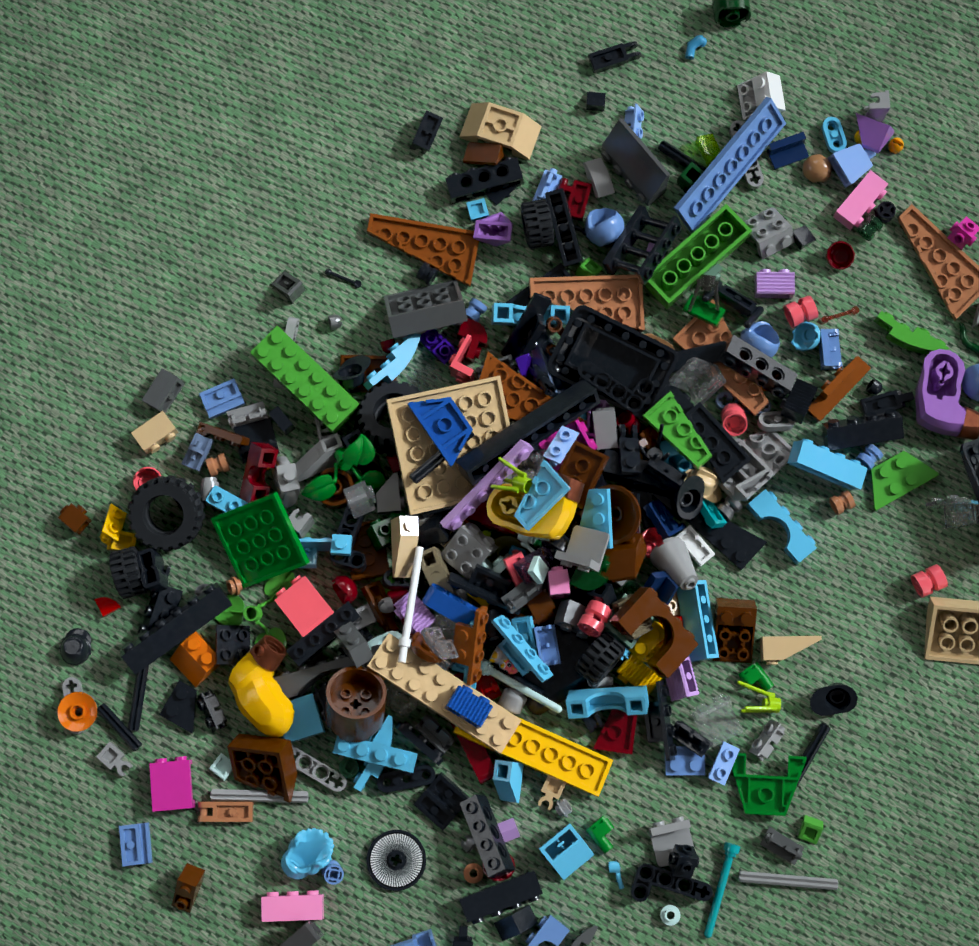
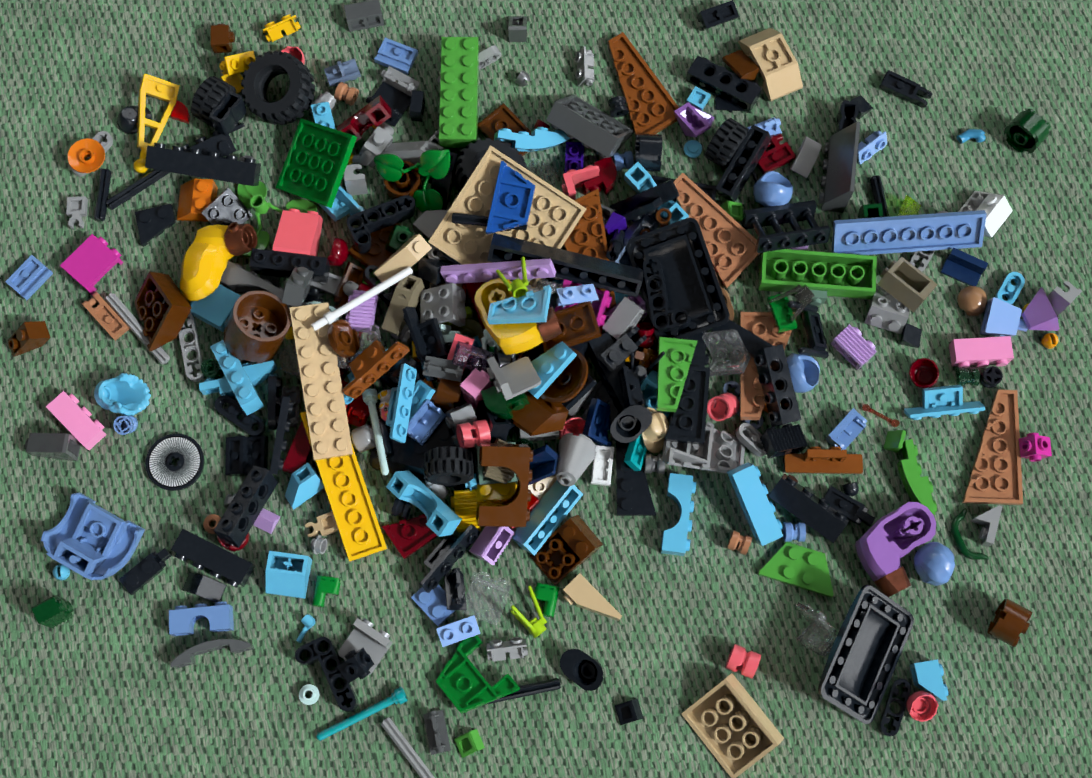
camera: 45 degrees right, 5 degrees down
(75, 604) = (164, 91): none -> yellow plate
(112, 457) = (287, 24): none -> yellow hinge
(155, 433) = (330, 35): tan brick -> none
(213, 718) = (165, 250): black hinge -> none
(221, 434) = (370, 77): reddish brown hinge -> none
(222, 766) = (134, 285): light aqua tile -> none
(234, 586) = (271, 179): nougat plate -> none
(341, 545) = (363, 217): medium azure plate -> none
(352, 372) = (495, 119): black piece -> none
(357, 283) = (565, 70): black hinge -> none
(360, 499) = (406, 198): clear brick -> none
(363, 263) = (584, 59): none -> light grey hinge
(438, 644) = (352, 342): clear slope -> none
(449, 604) = (387, 323): blue beam -> none
(458, 766) = (282, 427): none -> black plate
(469, 706) = (324, 403): blue brick -> none
(488, 286) = (648, 151): none -> black brick
(513, 251) = (692, 148): none -> medium azure plate
(538, 569) = (469, 360): light aqua tile -> none
(599, 121) = (847, 114): none -> black brick
(769, 211) = (900, 289): none -> dark tan window
(800, 311) = (852, 383): coral wheel -> none
(806, 336) = (838, 403): medium azure hair -> none
(868, 323) = (894, 440): none -> bright green slope
(873, 262) = (943, 401): none -> medium azure bracket
(890, 694) = (629, 711): none -> black slope

